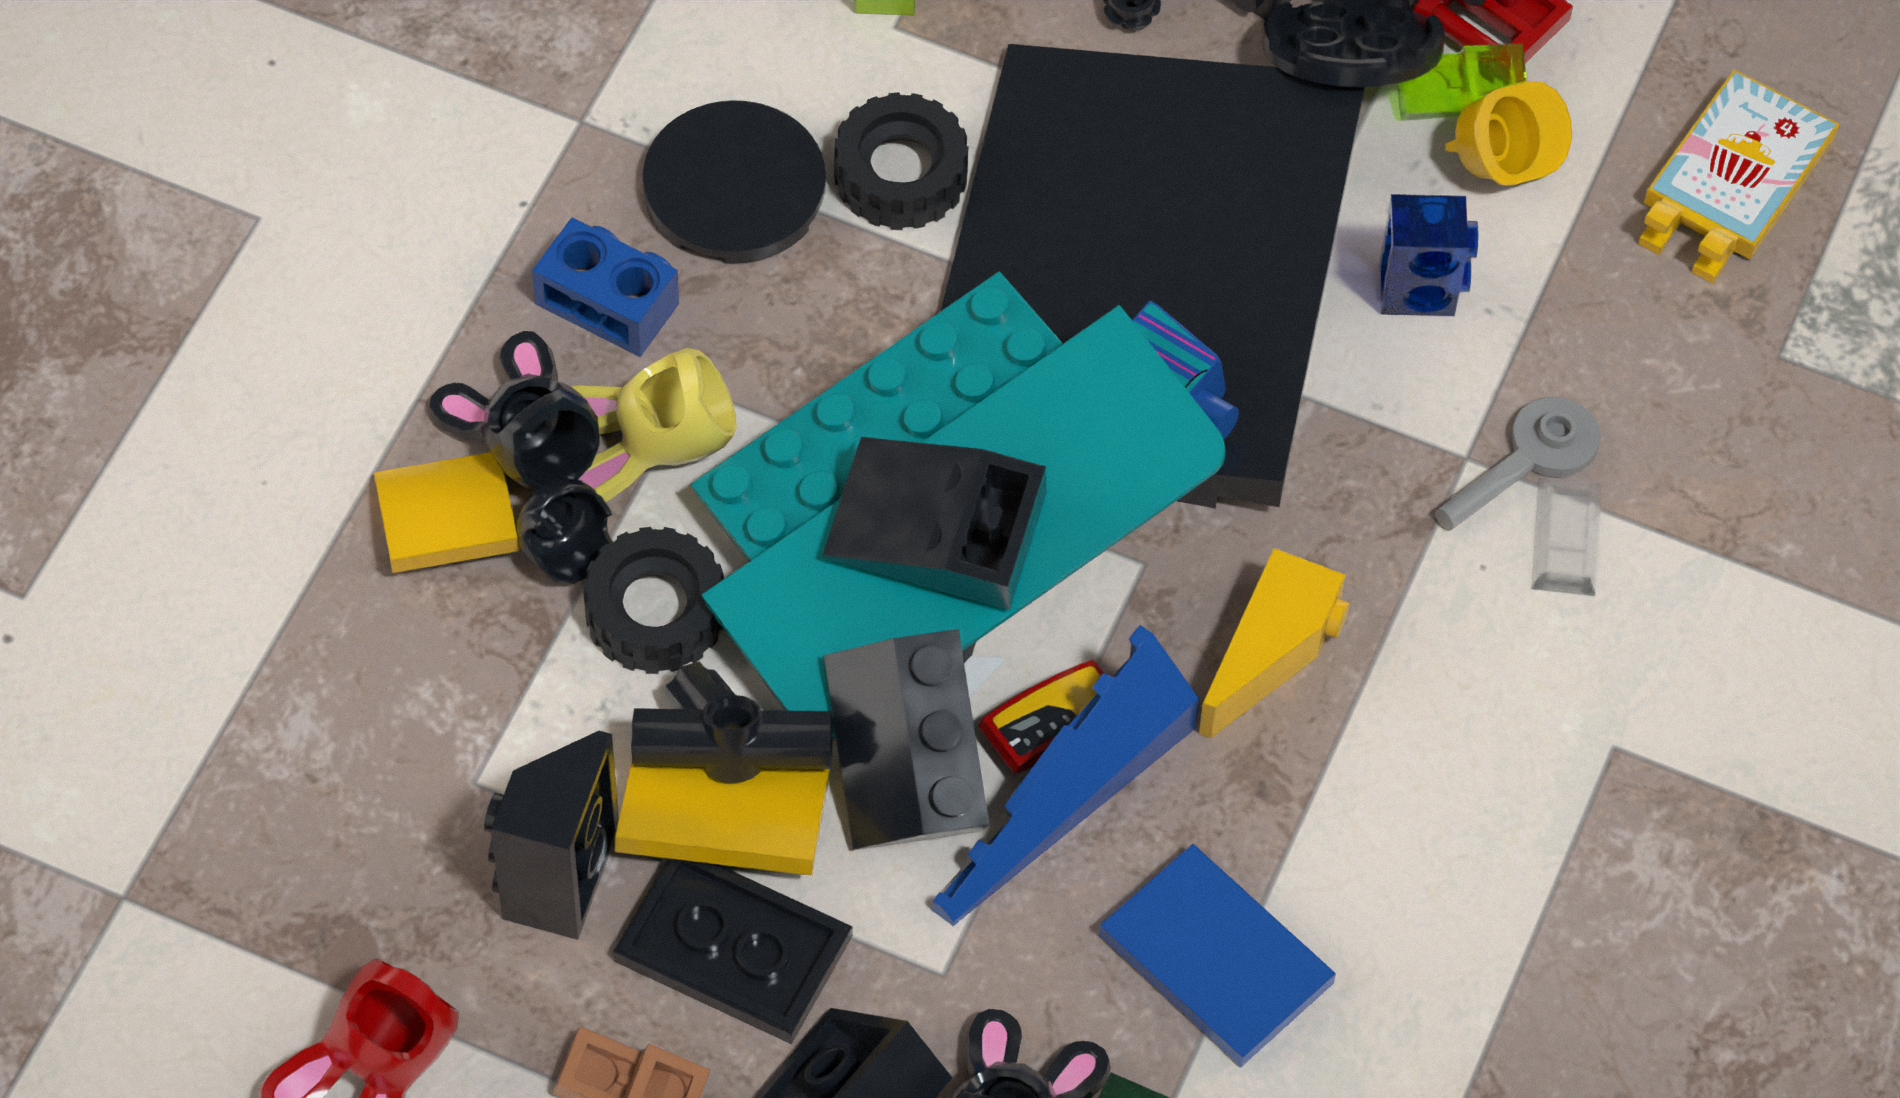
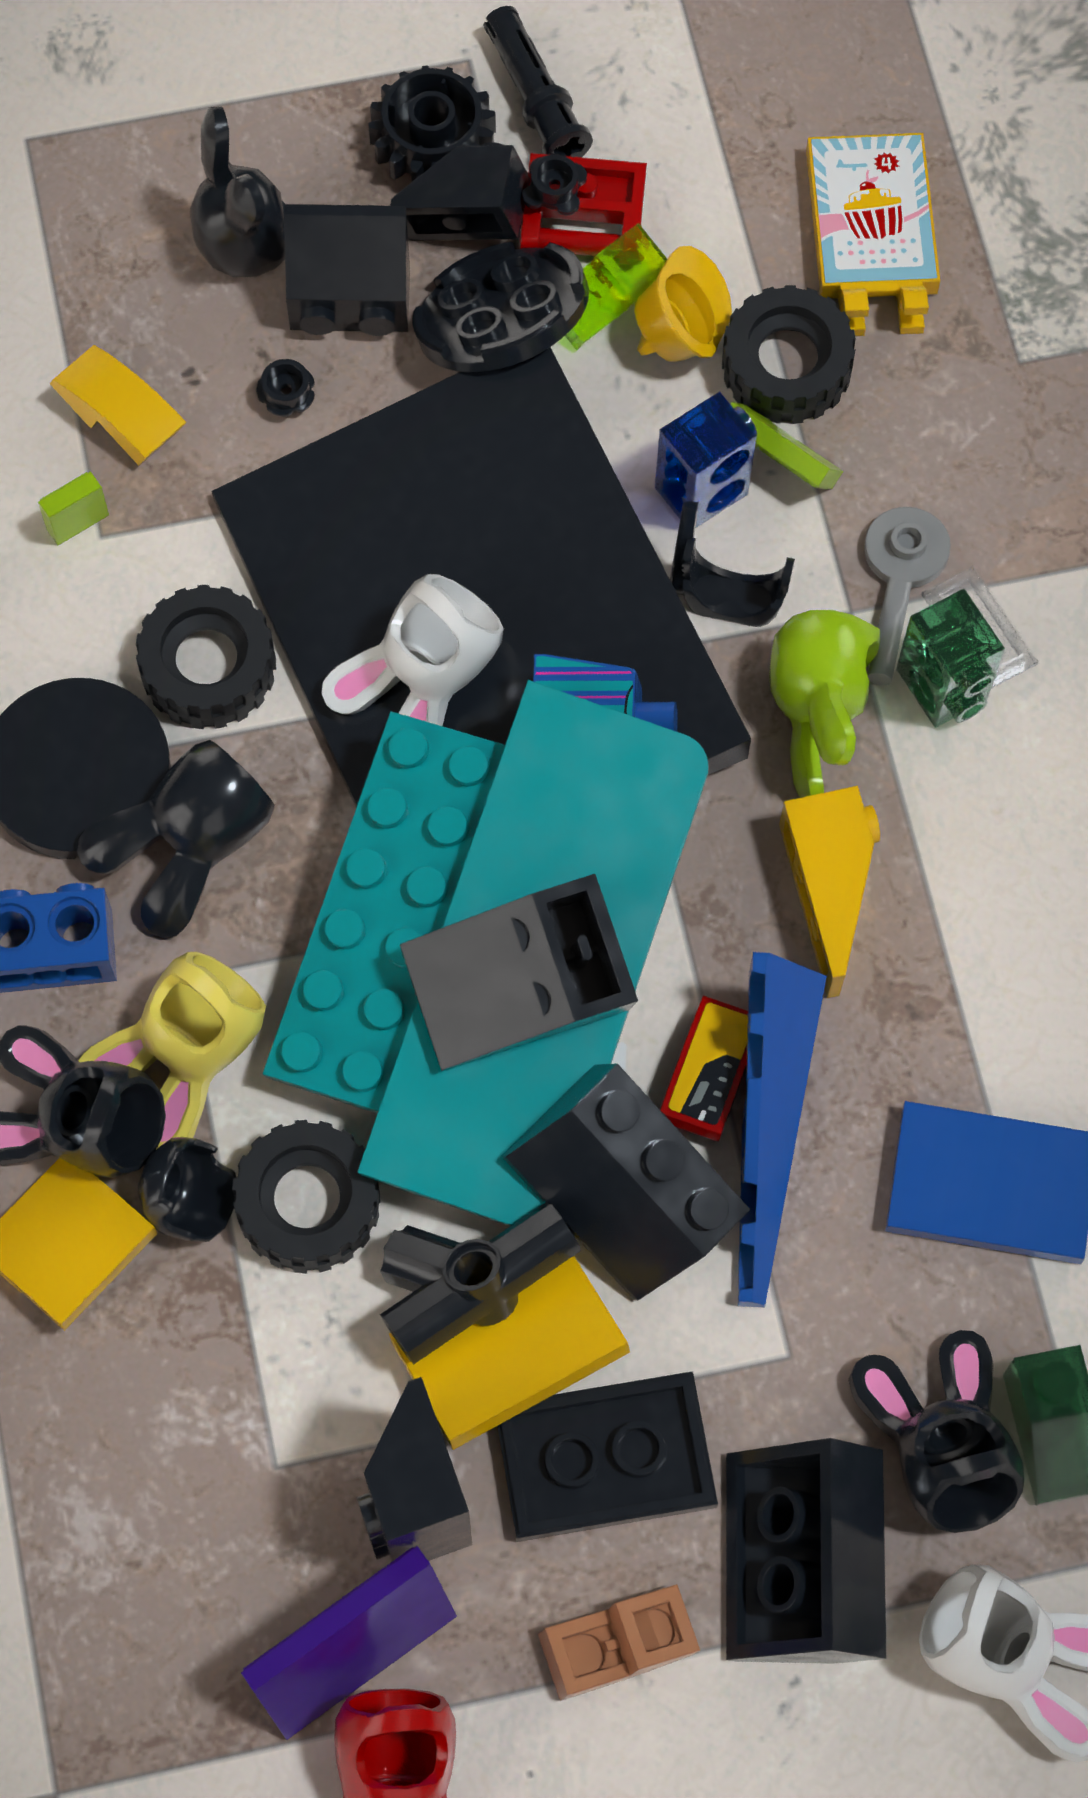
camera: 35 degrees left, 10 degrees up
(421, 922) = (350, 1642): none -> dark purple tile
(801, 269) = (203, 811): none -> black piece
(1078, 250) = (432, 644): none -> white piece
(1361, 367) = (720, 592): none -> black helmet
(1384, 480) = (821, 687): none -> lime piece
(1505, 529) = (950, 659): none -> clear green brick
(1508, 292) = (792, 453): none -> lime tile
(1582, 184) = (792, 311): none -> black tyre

